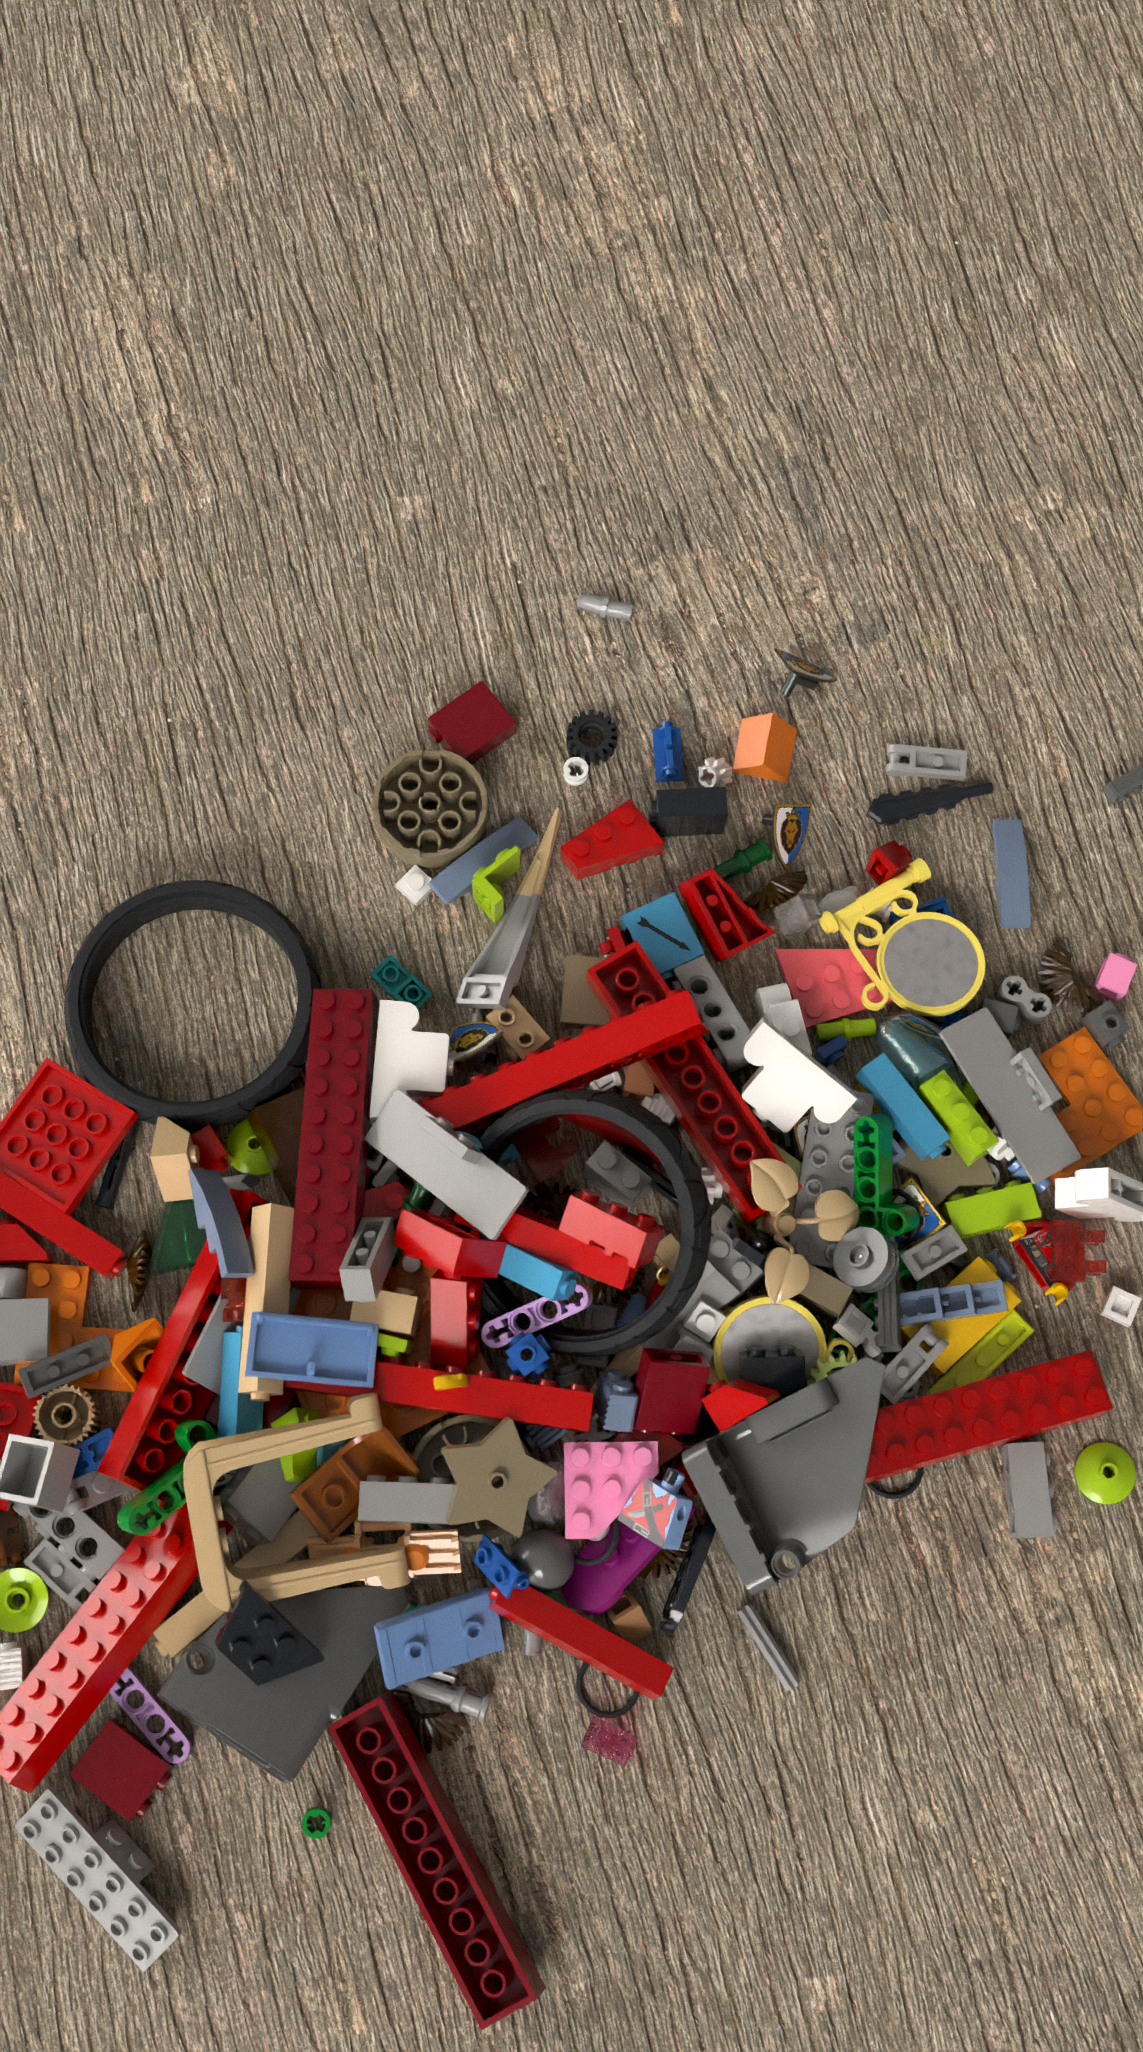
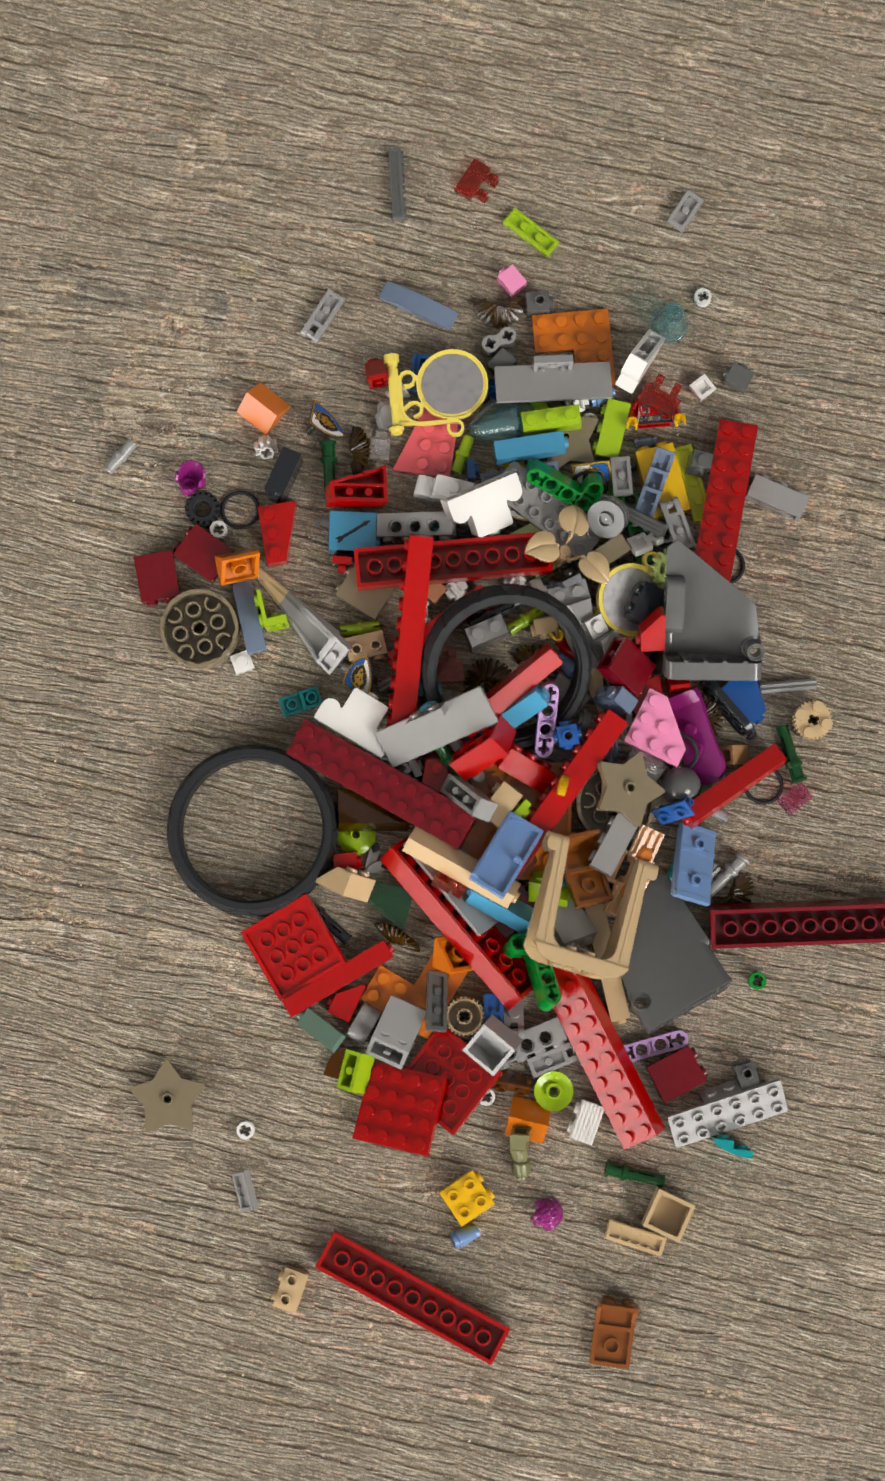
camera: 60 degrees left, 10 degrees up
(50, 1899) = (728, 1144): none -> teal slope
(168, 1877) = (746, 1073): none -> dark grey brick
(222, 1223) = (397, 872): sand blue slope -> none
(263, 1640) = (651, 959): black wing -> none
(533, 766) = (199, 552): none -> dark red brick
(536, 812) = (237, 566): none -> orange slope
(539, 1011) = (359, 628): none -> lime pin
(600, 766) = (223, 510): none -> black piece
(611, 1228) = (525, 650): wedge -> none
(624, 701) = (190, 477): none -> magenta hair
(659, 1510) = (688, 706): torso -> none
(660, 1712) = (793, 763): none -> dark green pin
(668, 753) = (236, 468): blue hinge -> none
(671, 1224) = (524, 620): none -> lime pin
(716, 1593) = (747, 698): none -> blue slope
(753, 1704) = (822, 722): none -> tan brick
(801, 673) = (226, 359): shield -> none
(908, 805) = (343, 341): black sword -> none
(1012, 1353) = (699, 463): none -> dark grey brick
(1090, 1476) = (784, 457): lime dish -> none

